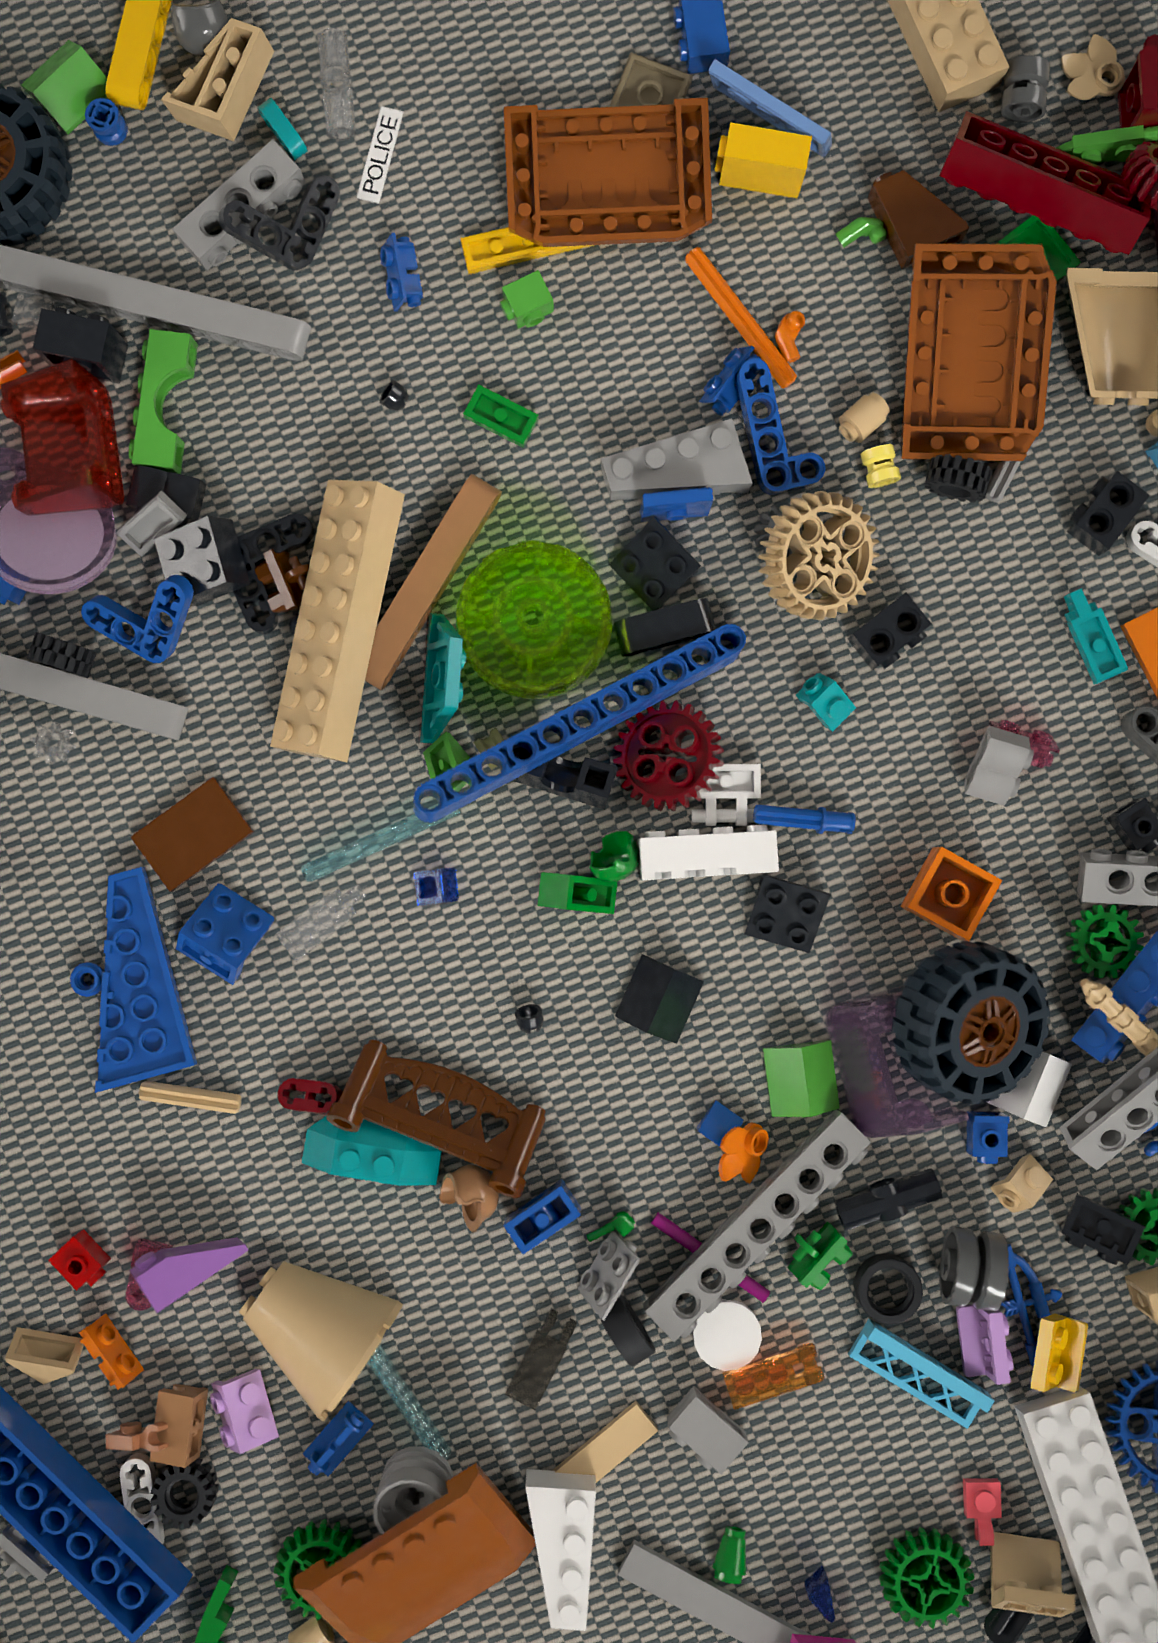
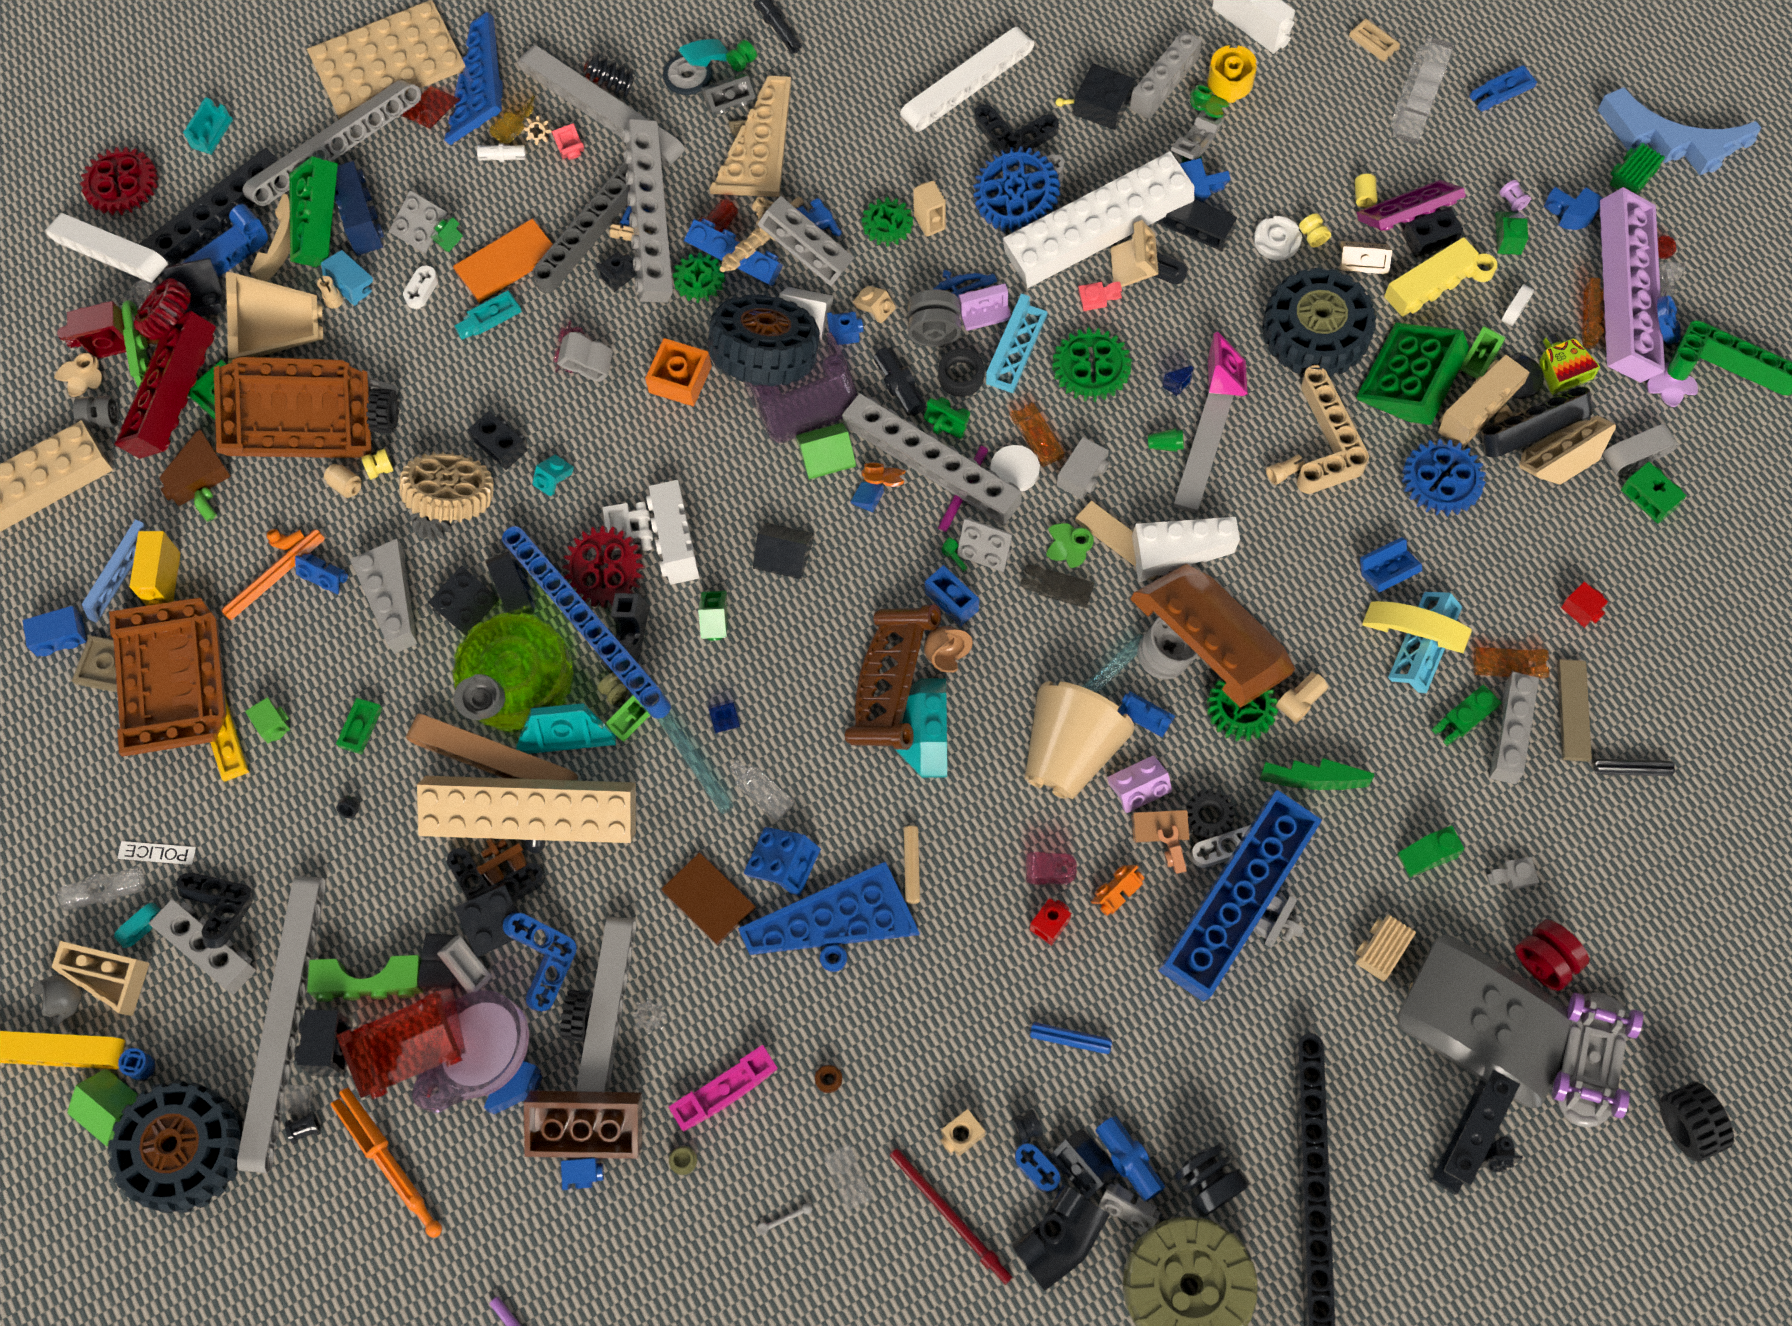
camera: 100 degrees left, 20 degrees down
(44, 1354) = (1130, 936): tan slope -> none
(179, 1269) = (1041, 838): medium lavender slope -> none
(311, 1088) = (888, 774): dark red beam -> none
(397, 258) = (244, 821): blue hinge -> none
(478, 572) = (479, 697): none -> dark grey helmet
(529, 1018) = (811, 632): black hinge -> none
(597, 1382) = (1066, 546): none -> bright green plate
(617, 857) = (682, 590): green hair -> none
(628, 1332) = (1024, 525): black tyre -> none
(676, 504) = (417, 588): blue plate -> none
(771, 427) = (354, 536): blue beam -> none
(787, 913) = (708, 475): black hinge -> none
(804, 818) = (638, 464): blue axle -> none
(863, 1507) = (1113, 363): none -> green gear
(950, 1587) = (1165, 313): green gear -> none
(1059, 1353) = (983, 261): yellow bracket -> none
(1101, 1229) = (893, 249): black bracket -> none
(1111, 517) = (401, 314): black brick -> none

